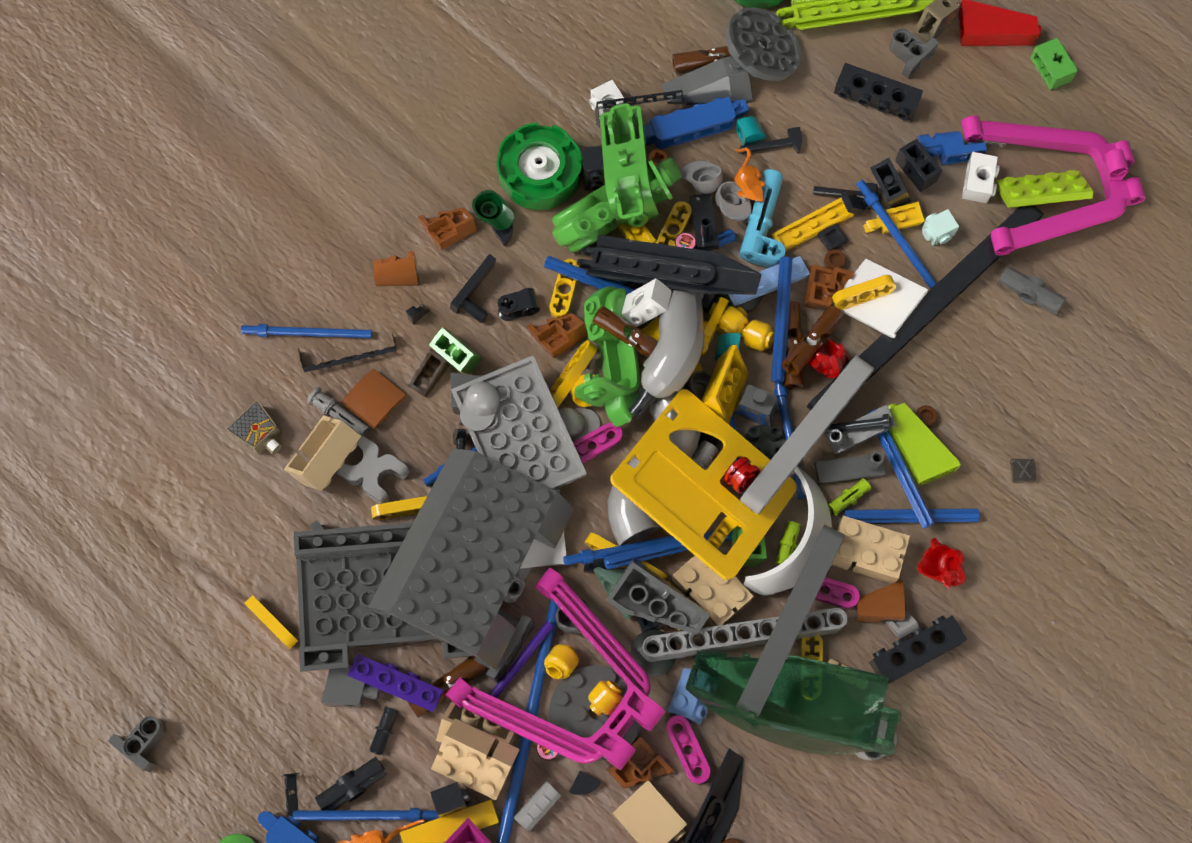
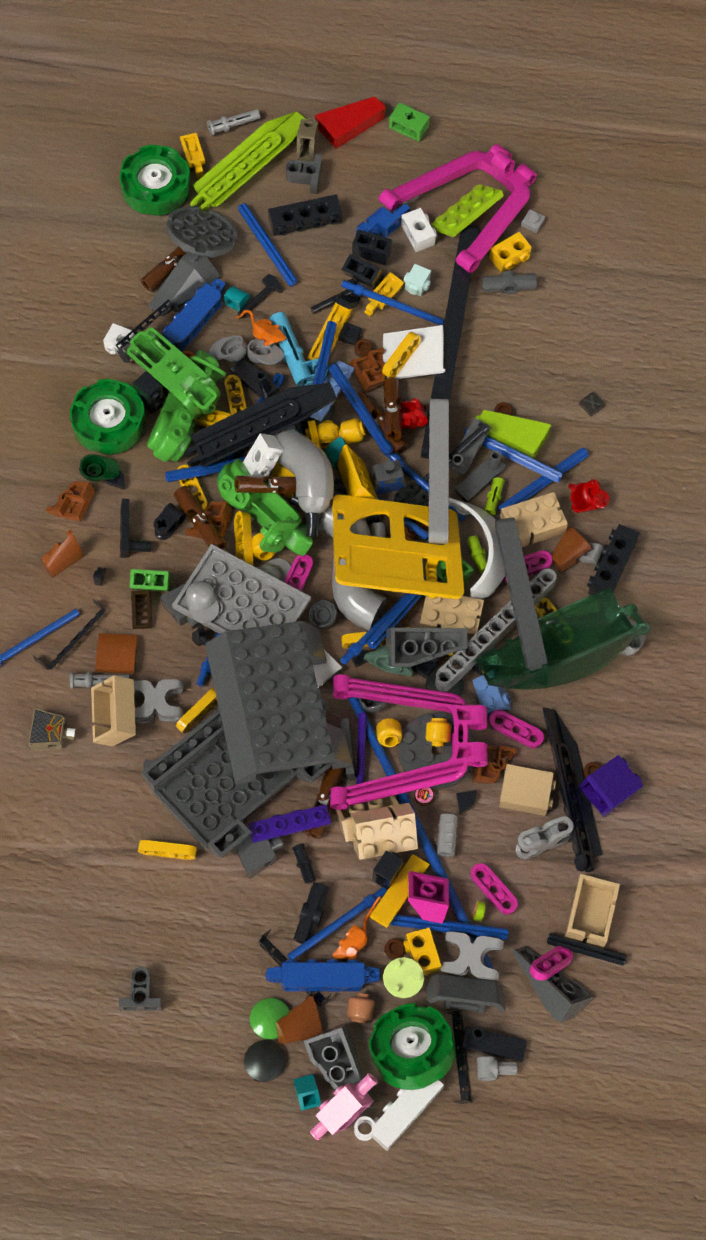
camera: 40 degrees left, 5 degrees down
(545, 321) = (200, 521): none -> reddish brown piece
(590, 497) = (322, 614): none -> dark grey hair
(685, 240) = (252, 398): tile -> none
(741, 474) = (418, 524): red wheel -> none
(787, 242) = (325, 352): none -> blue axle
(820, 98) = (267, 244): none -> blue axle
(1055, 255) = (508, 250): none -> yellow brick
(1105, 243) = (533, 221): none -> light grey plate

